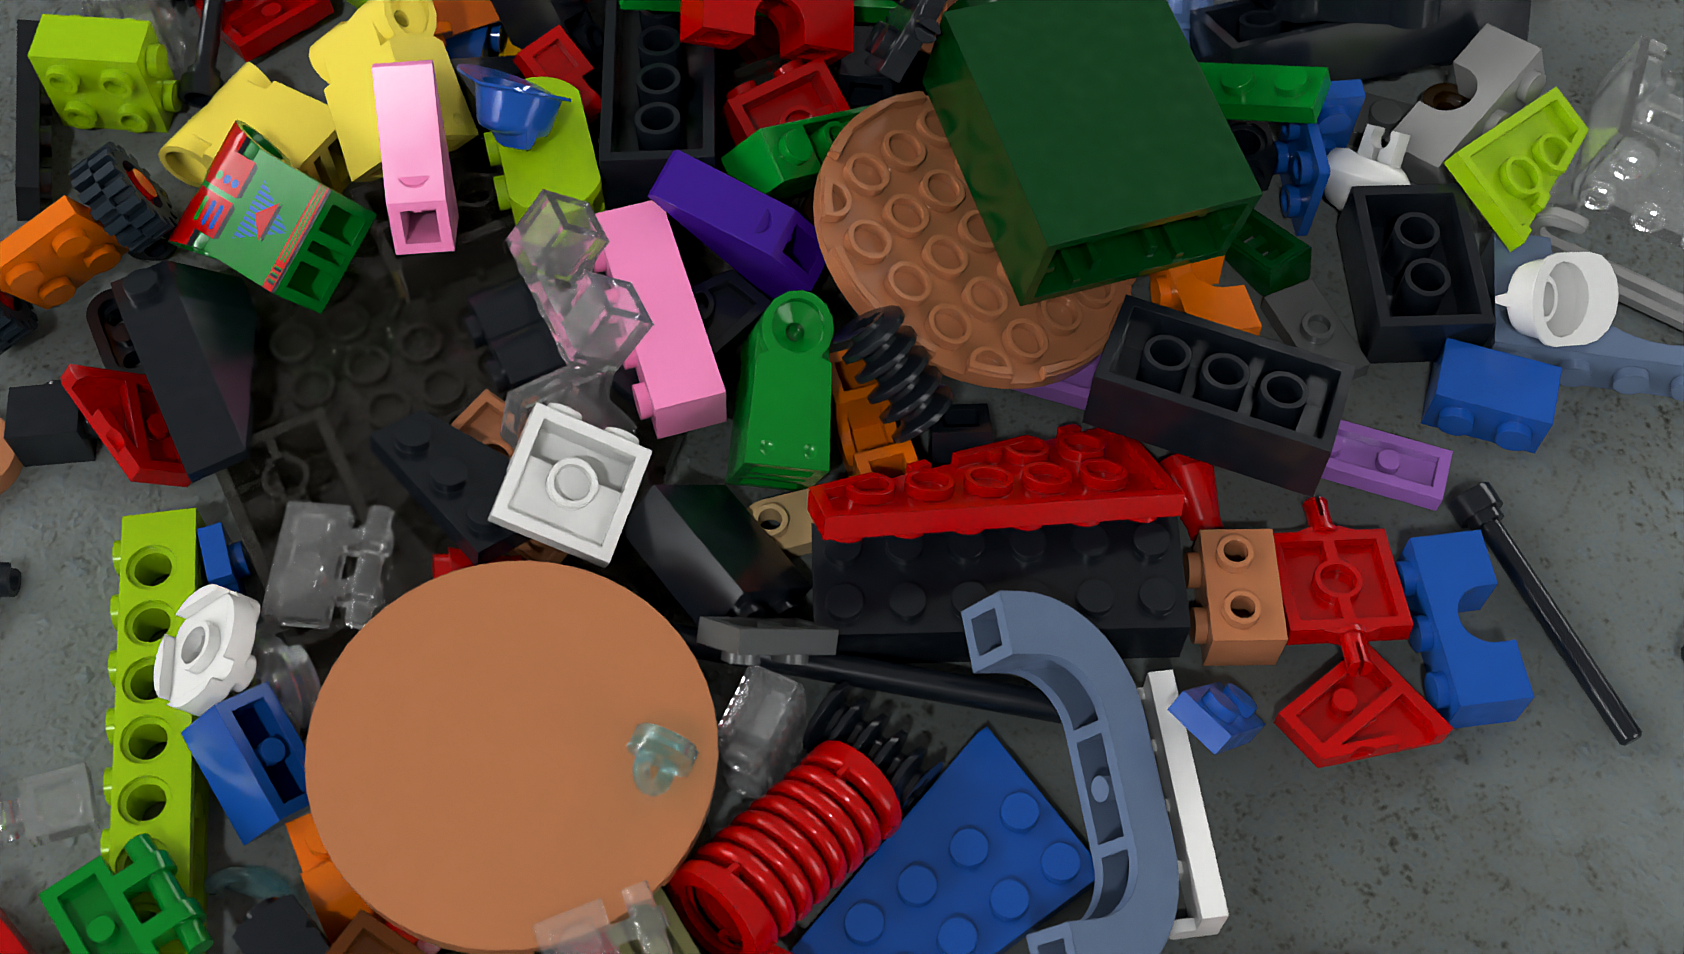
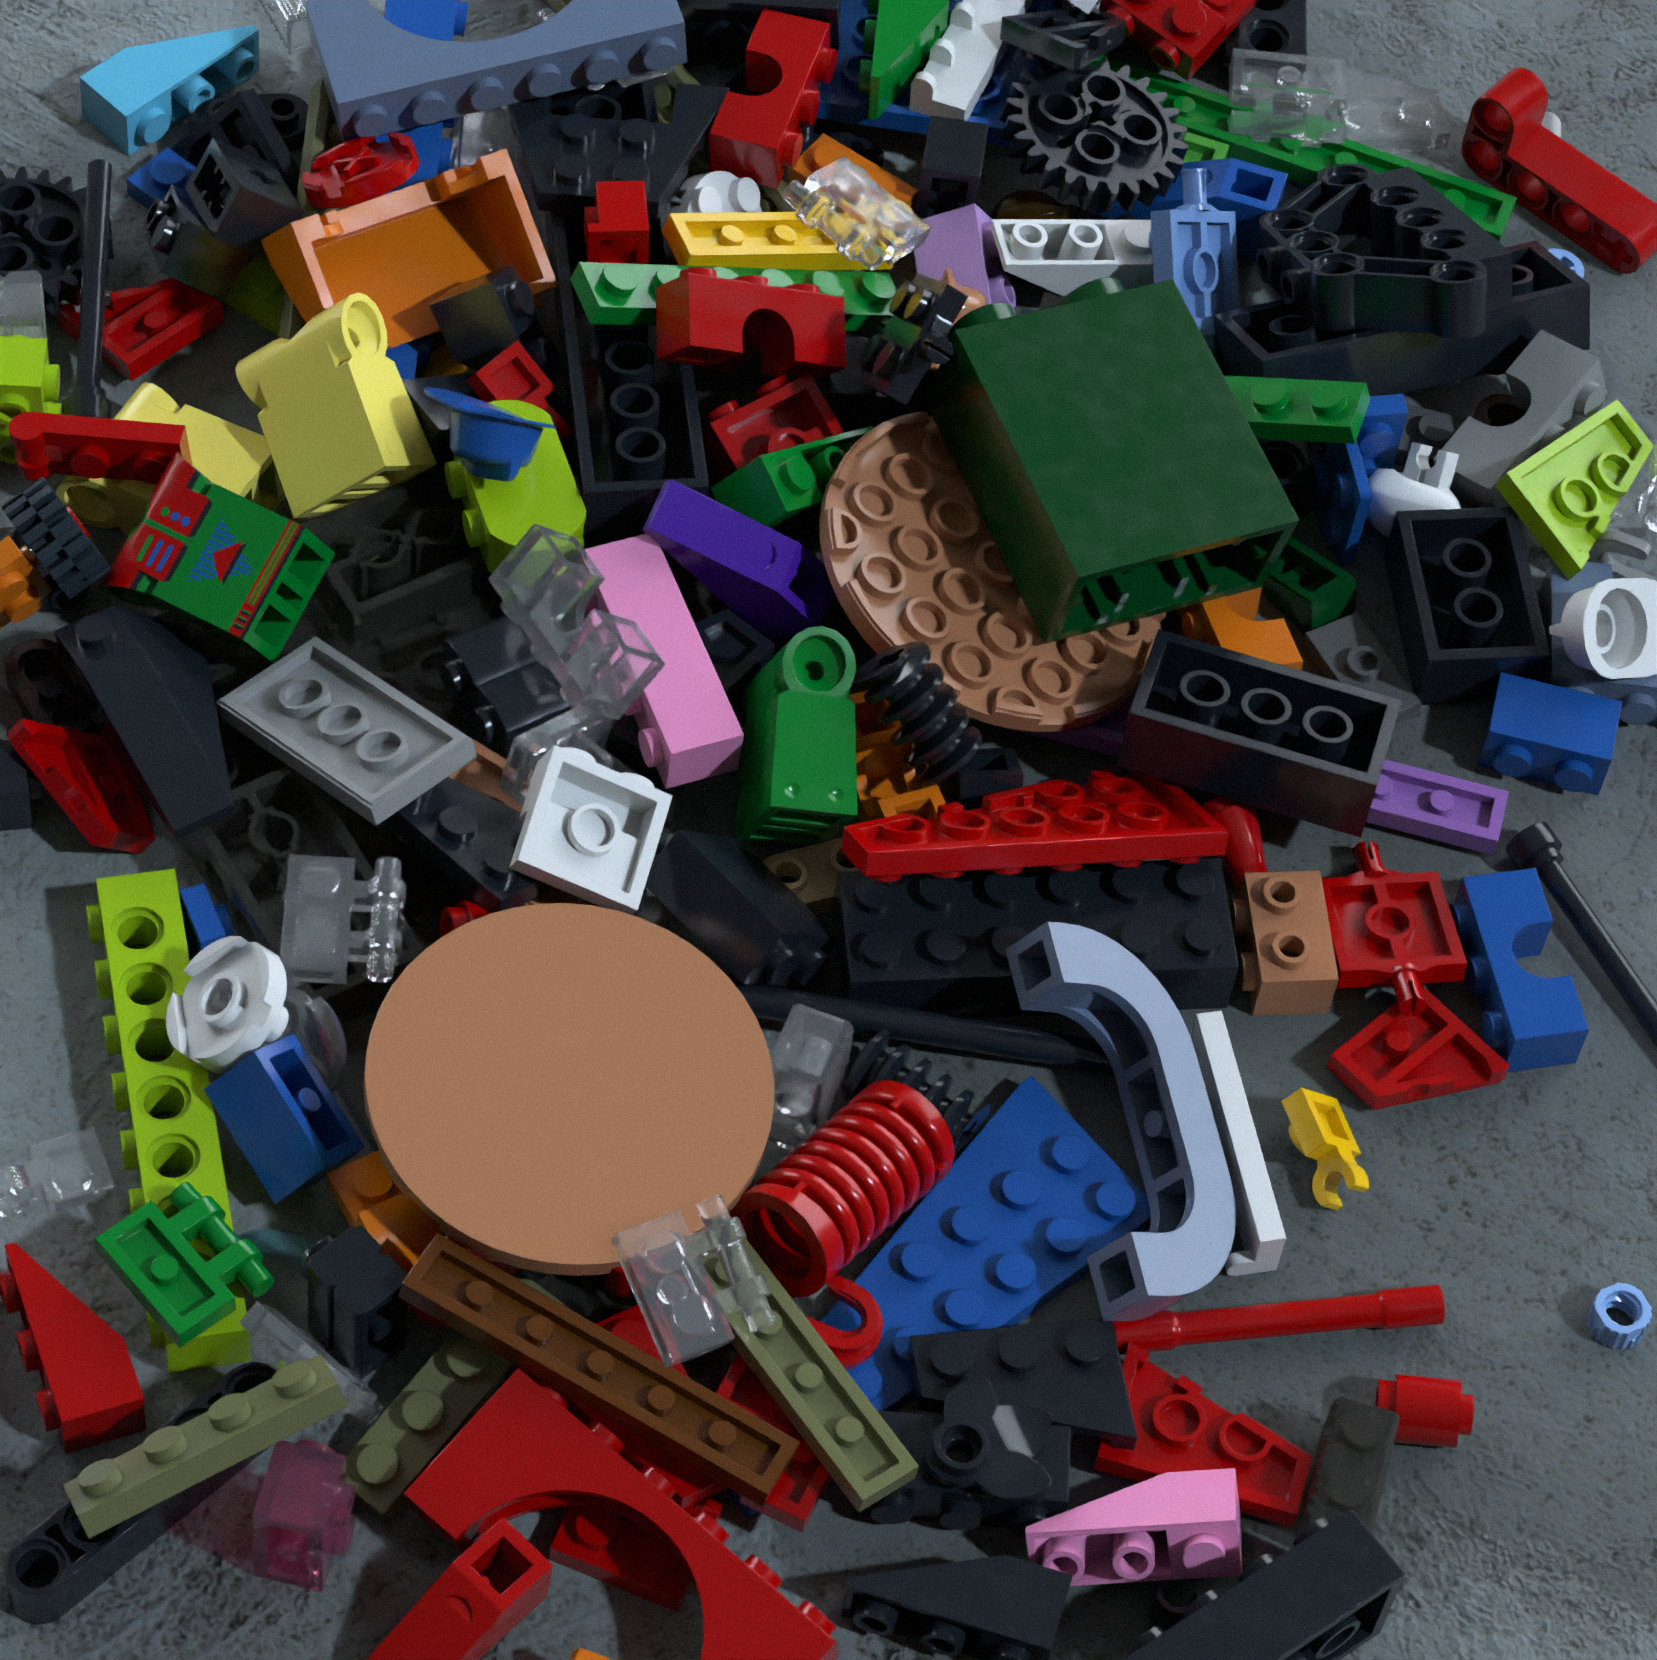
camera: 10 degrees left, 5 degrees down
(177, 115) = (94, 446): none -> red plate
(364, 381) = (346, 730): none -> light grey tile
(415, 158) = (389, 492): bright pink slope -> none
(663, 750) = (724, 1077): clear light blue tile -> none
(784, 639) = (790, 980): dark grey plate -> none
(1218, 715) = (1270, 1053): blue plate -> none
(1270, 798) = (1324, 1135): none -> yellow plate

